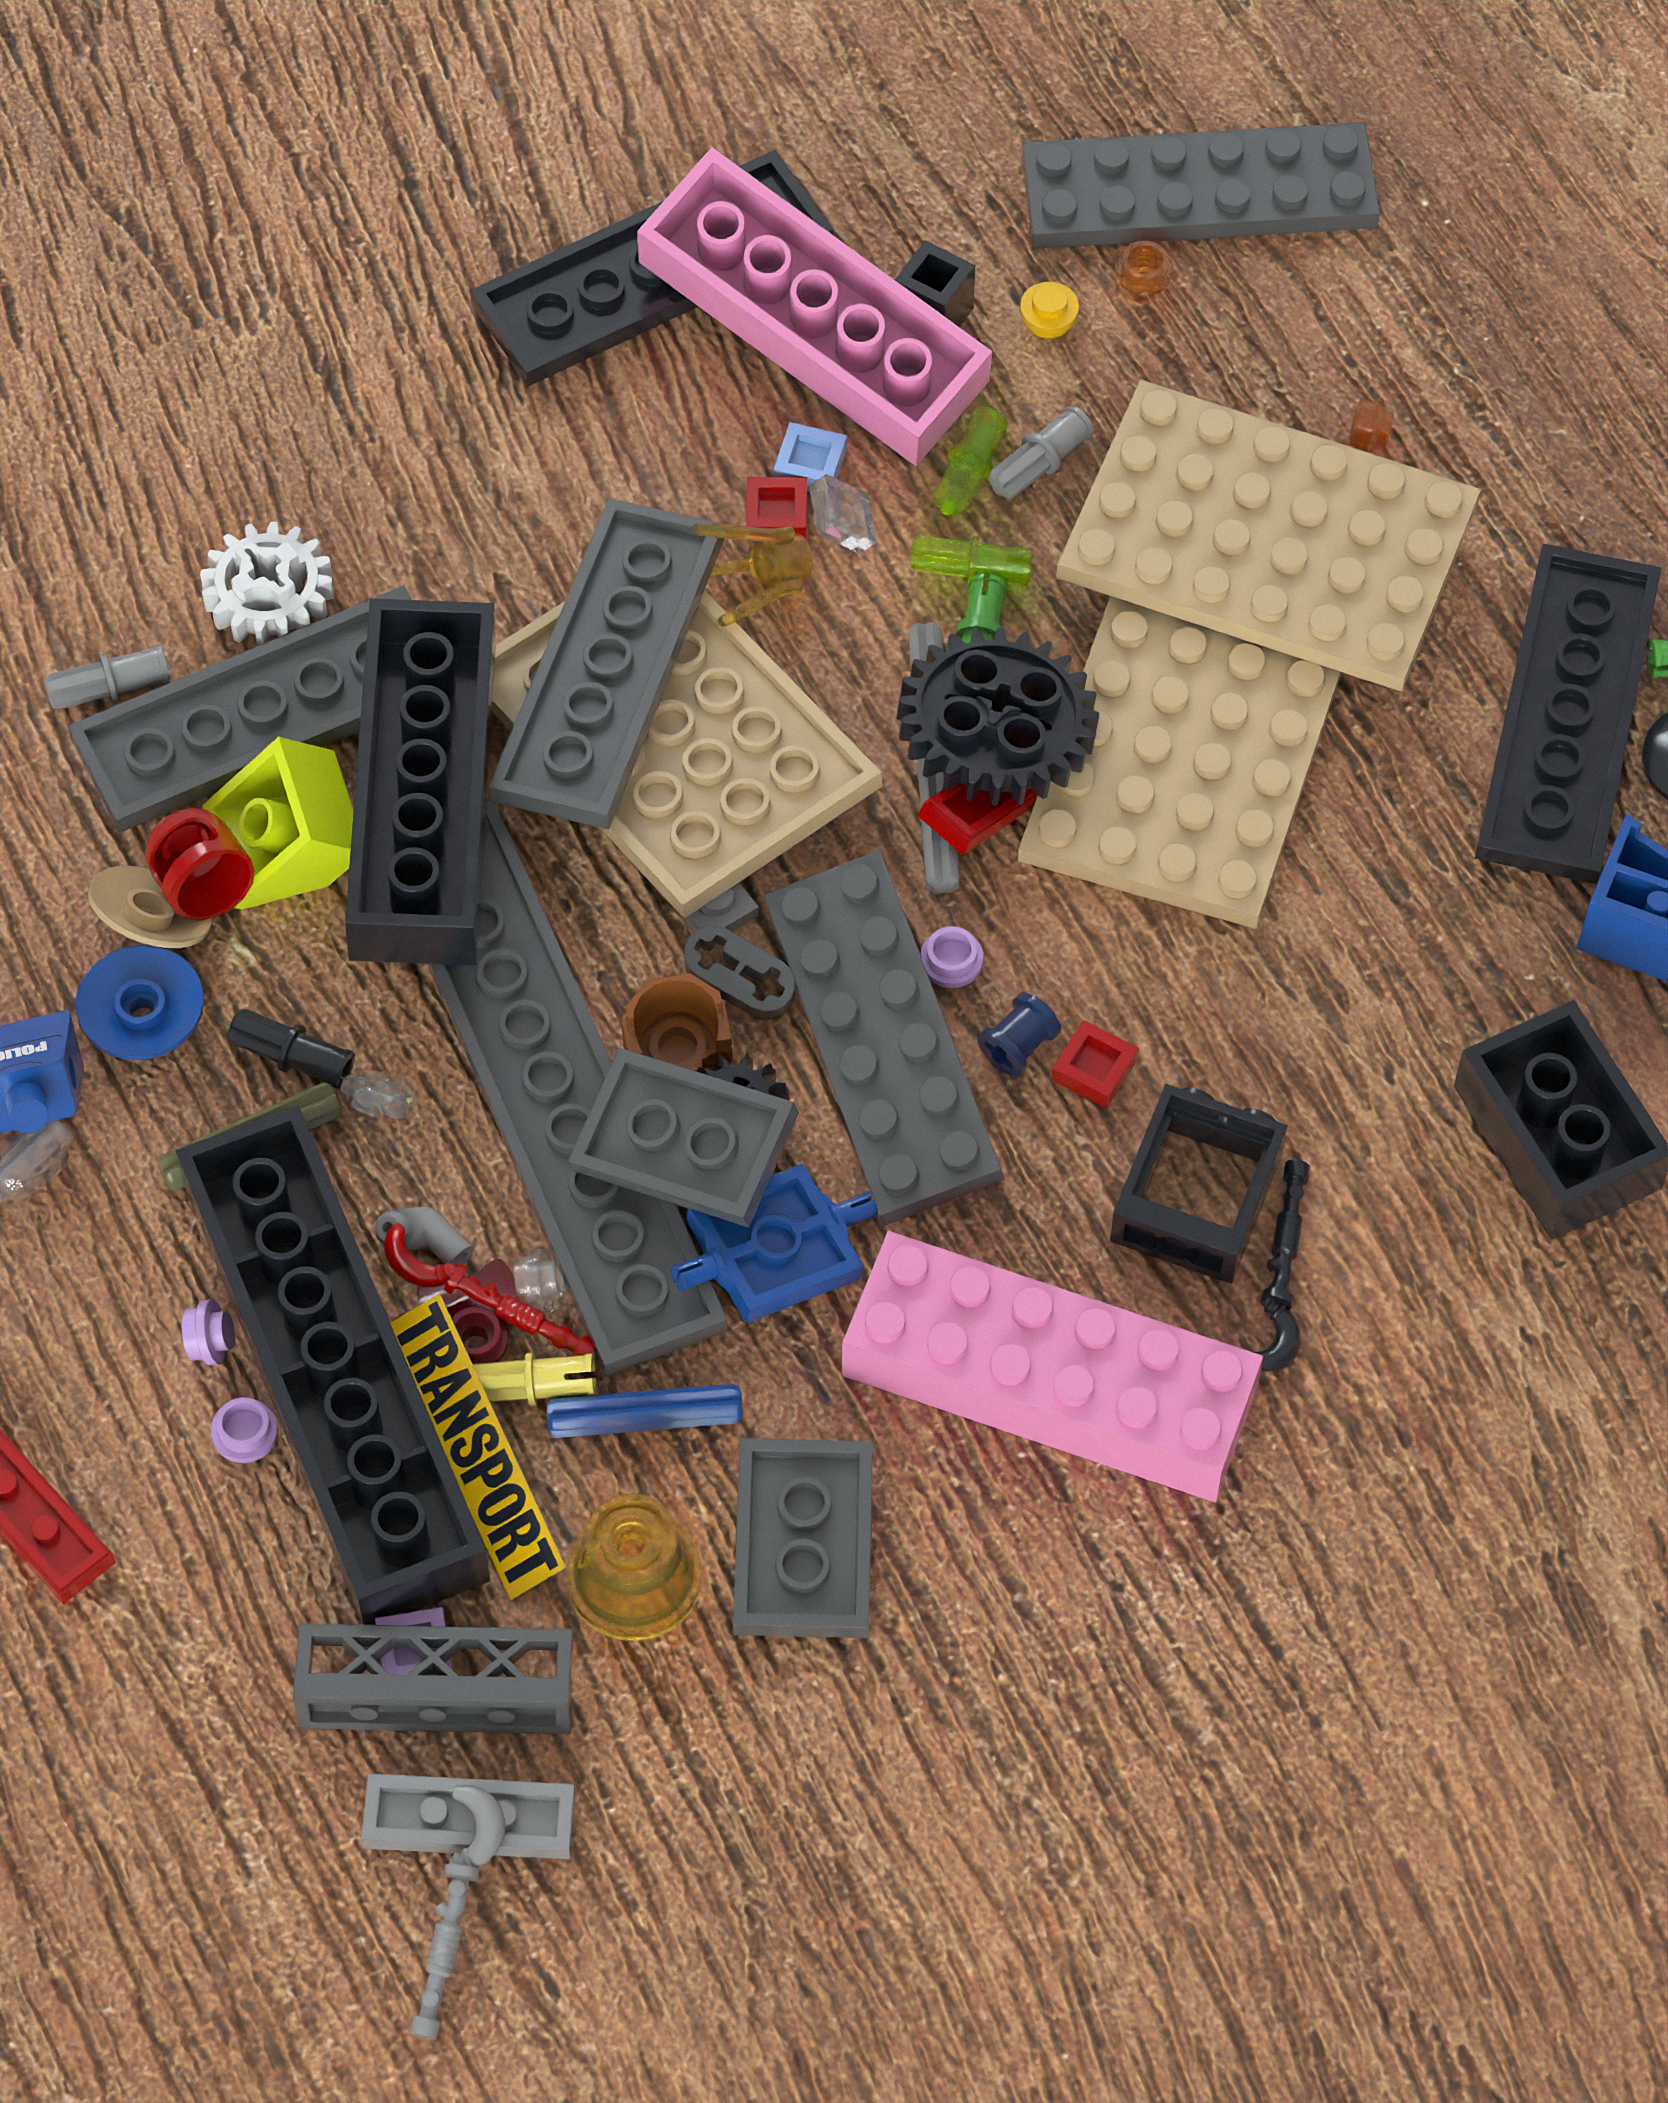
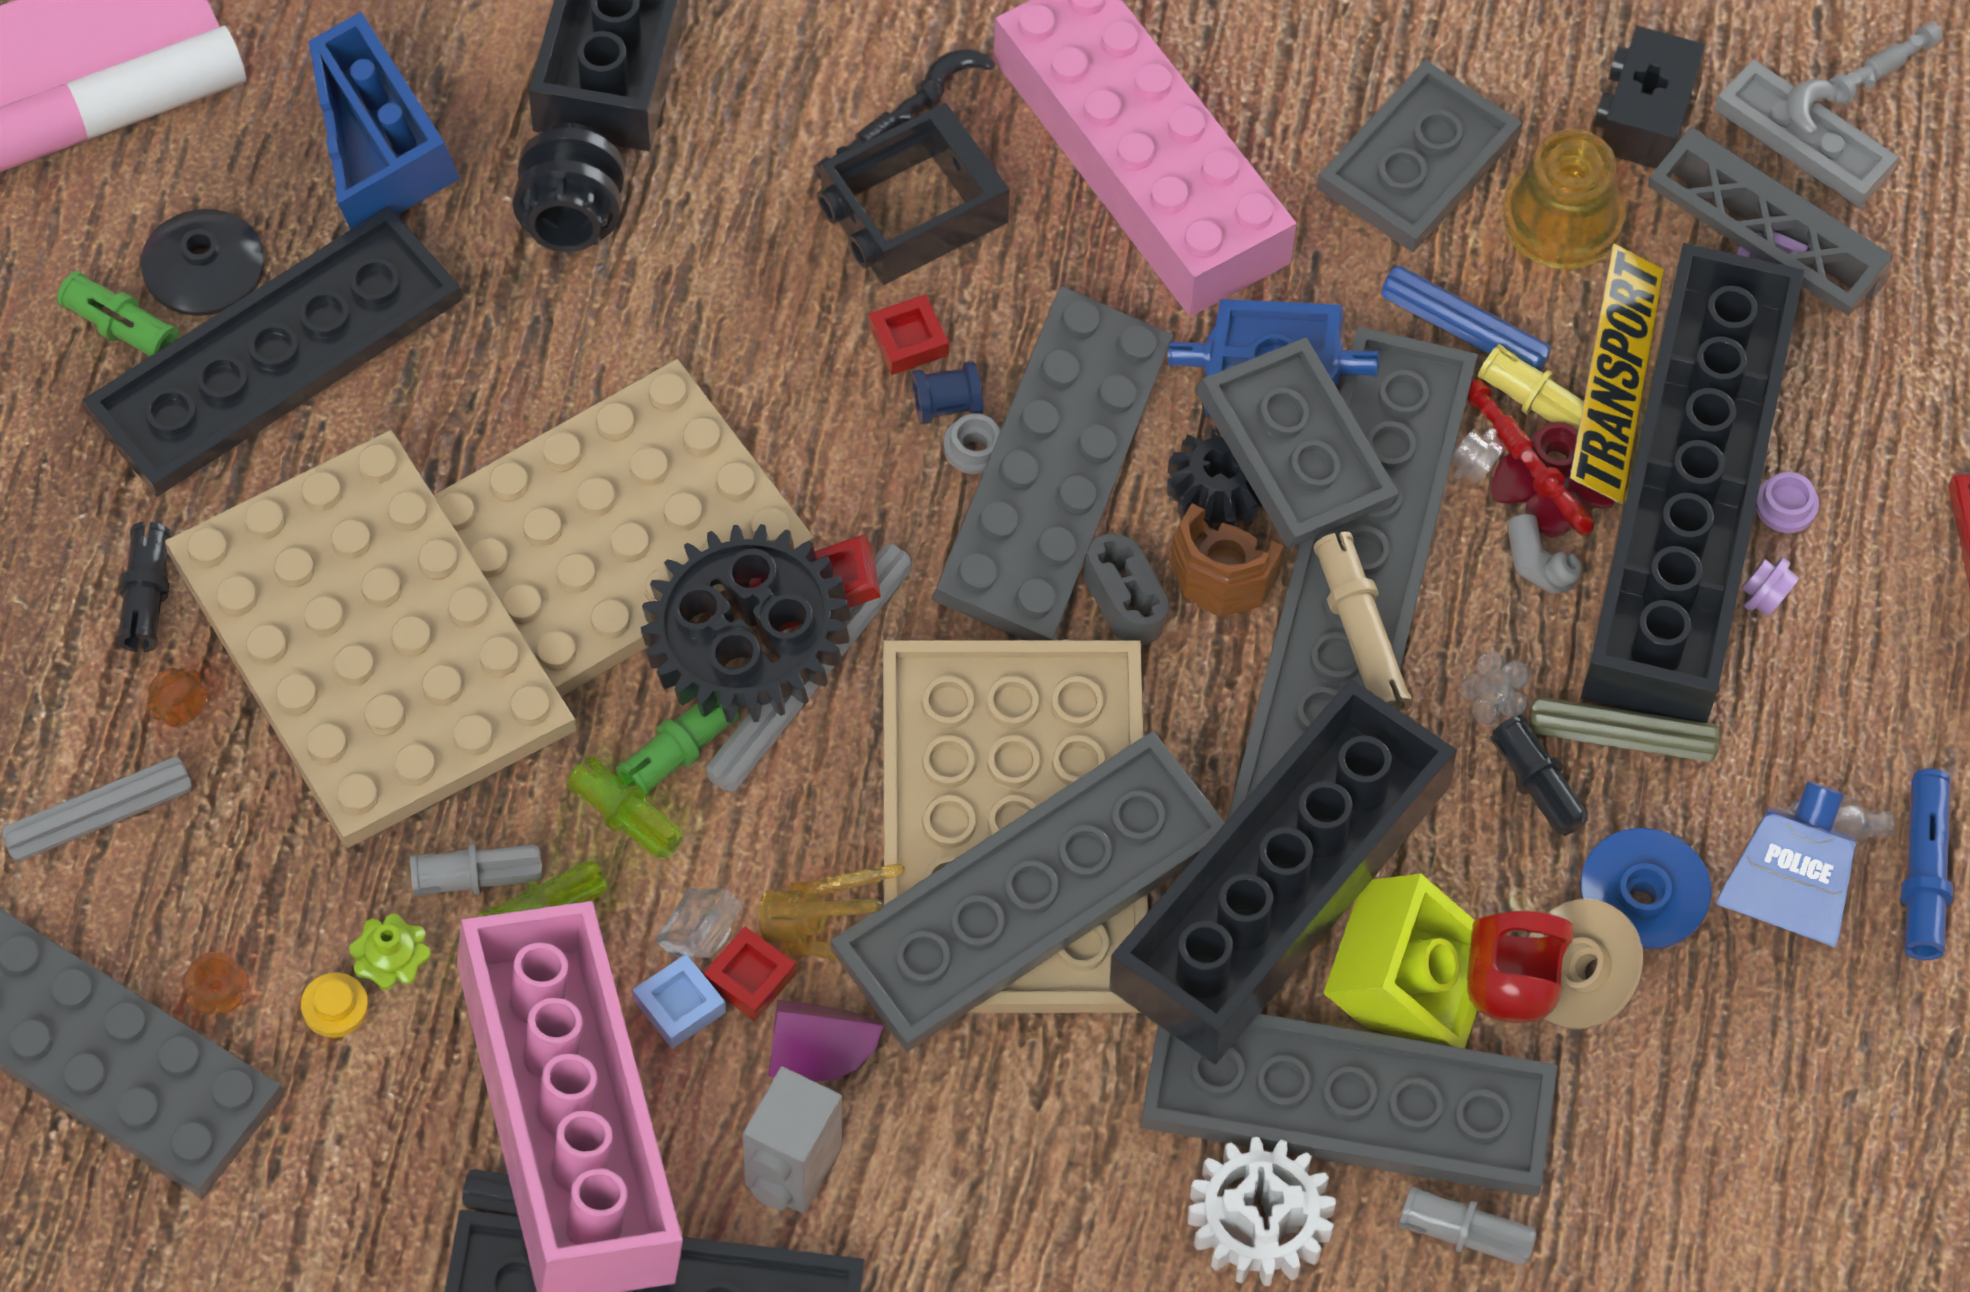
camera: 145 degrees left, 0 degrees up
(537, 1051) = (1354, 599): none -> tan pin
(636, 391) = (792, 1141): none -> light grey brick
(636, 1780) = (1650, 96): none -> black brick
(694, 489) = (821, 1040): none -> magenta brick
(941, 281) = (436, 1062): black brick -> none
(952, 957) = (942, 493): lavender plate -> none
(971, 1002) = (970, 429): none -> light grey plate
(1044, 359) = (389, 951): none -> lime plant
(1344, 322) = (96, 809): none -> light grey axle
(1473, 977) = (569, 187): none -> black piece
(1495, 503) = (143, 587): none -> black pin

